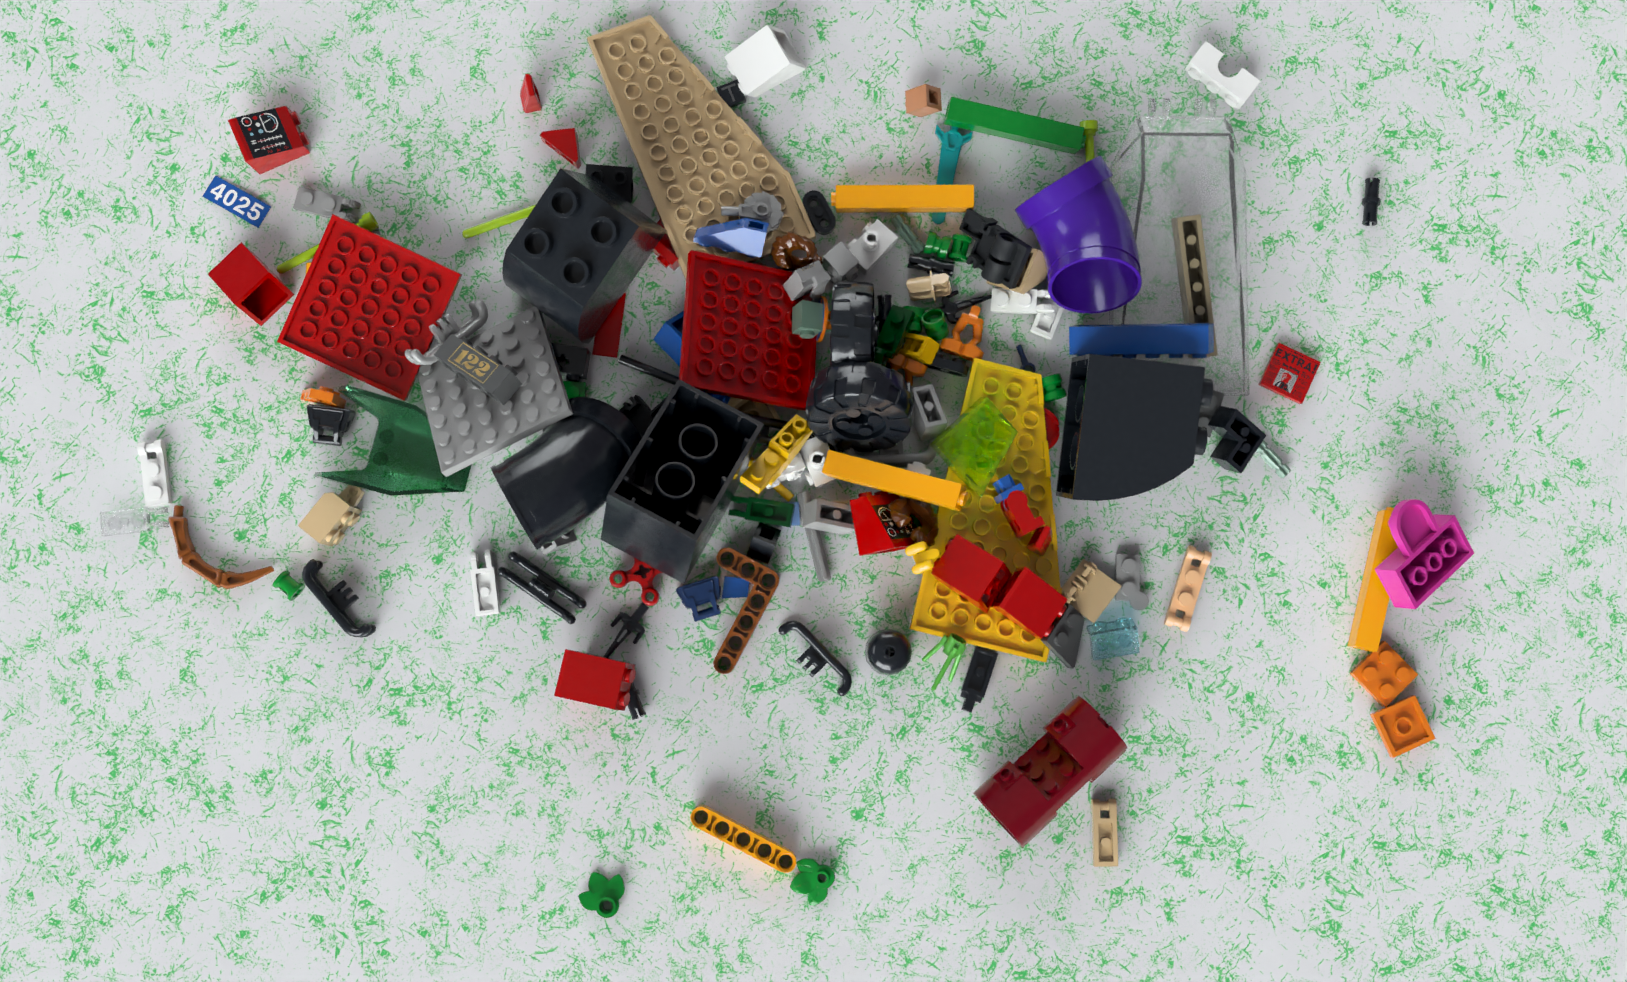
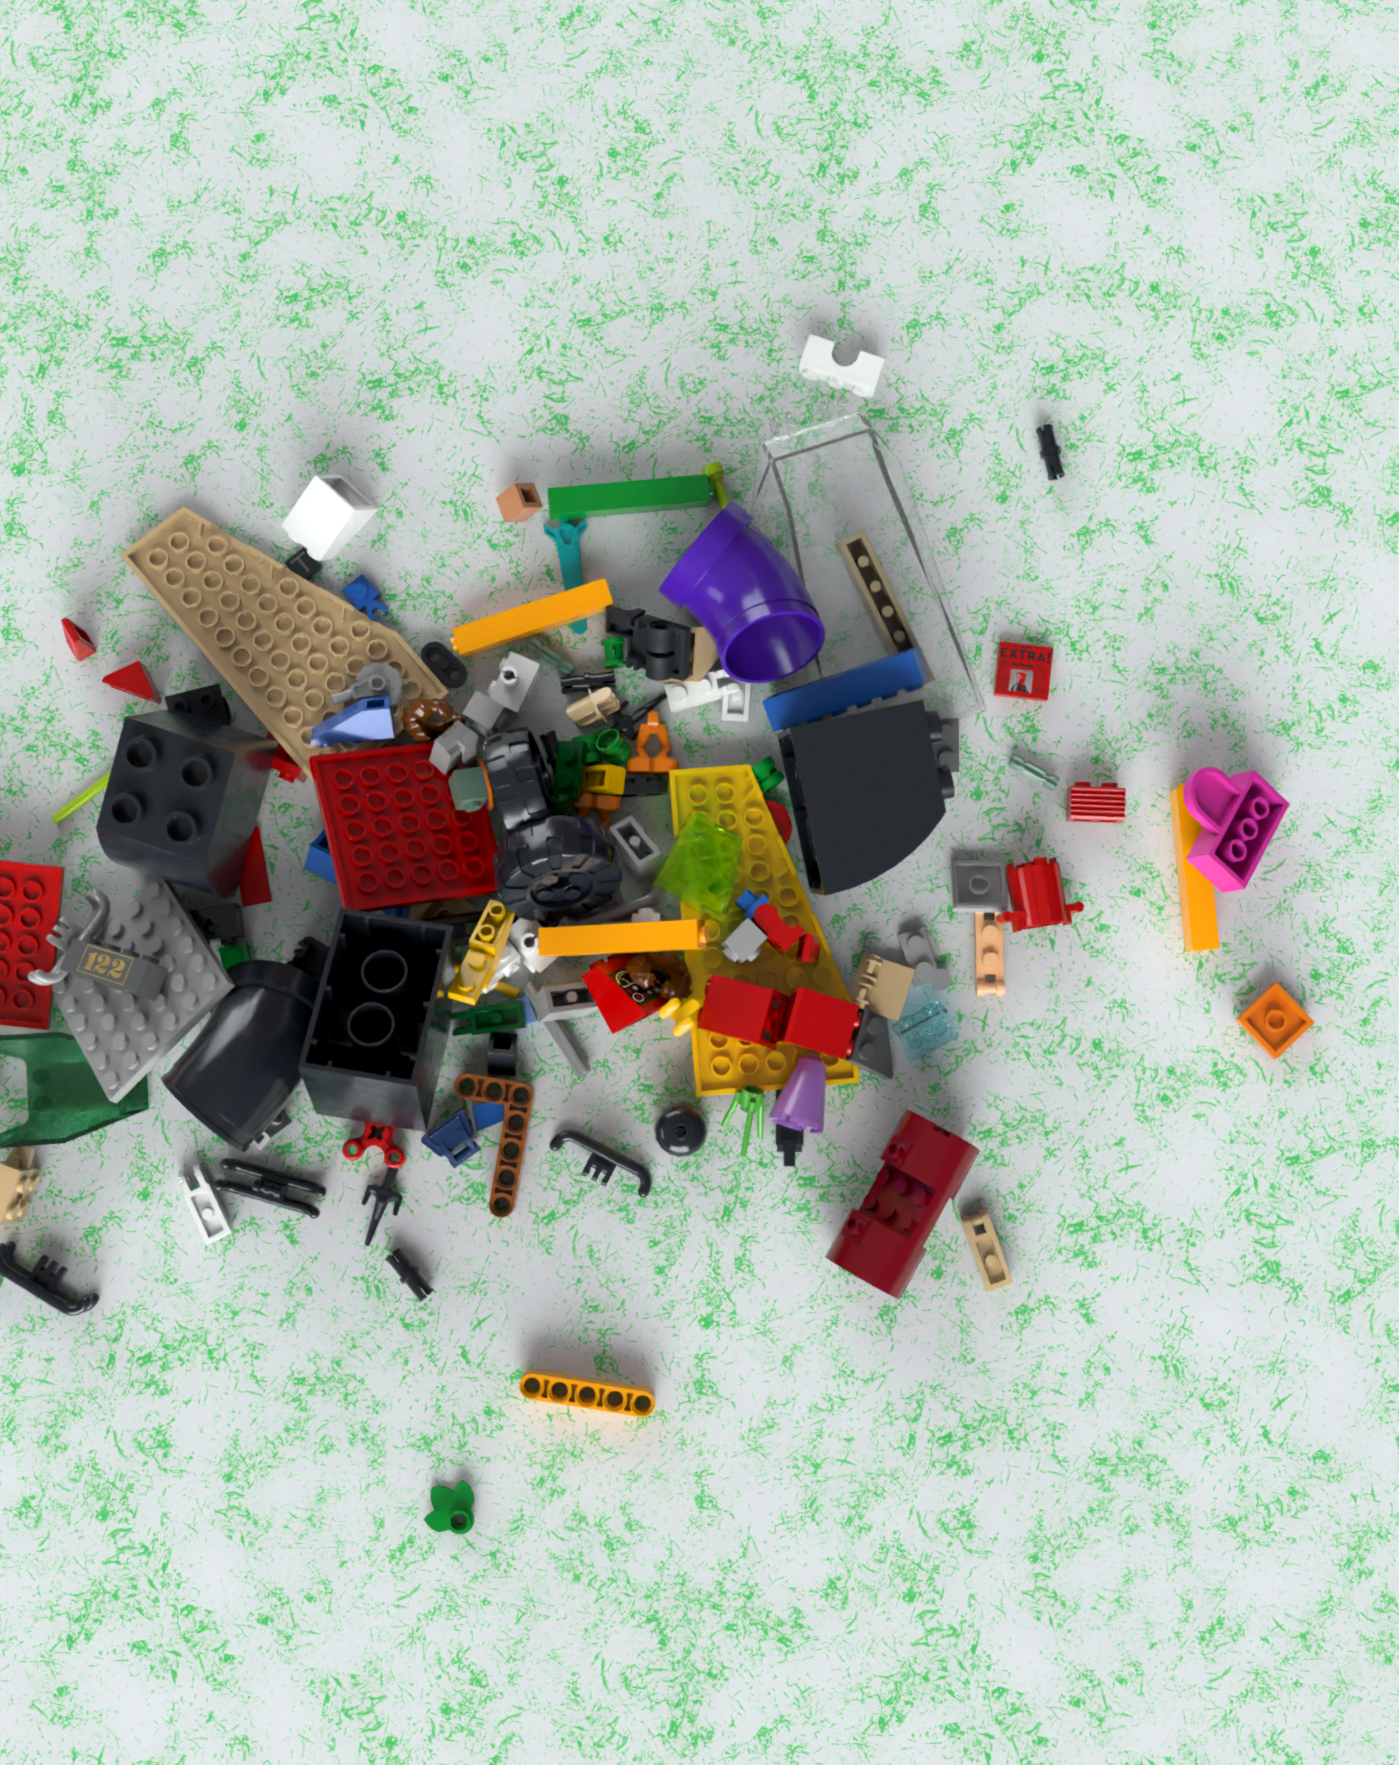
camera: 15 degrees left, 0 degrees up
(595, 680) = (362, 1272): red slope -> none
(647, 369) = (310, 903): black bar -> none
(771, 135) = (363, 596): none -> blue plate
(809, 882) = (677, 1416): green plate -> none
(938, 245) = (585, 658): green wheel -> none
(990, 517) = (743, 943): none -> light grey brick
(997, 658) = (803, 1097): none -> medium lavender cone
(1024, 361) = (725, 753): dark blue hand -> none
(1196, 535) = (979, 886): none -> light grey tile
(1238, 440) = (990, 763): black brick -> none
(1241, 559) = (1037, 896): none -> red container
(1314, 500) = (1095, 804): none -> red brick
(1383, 674) = (1235, 969): orange plate -> none

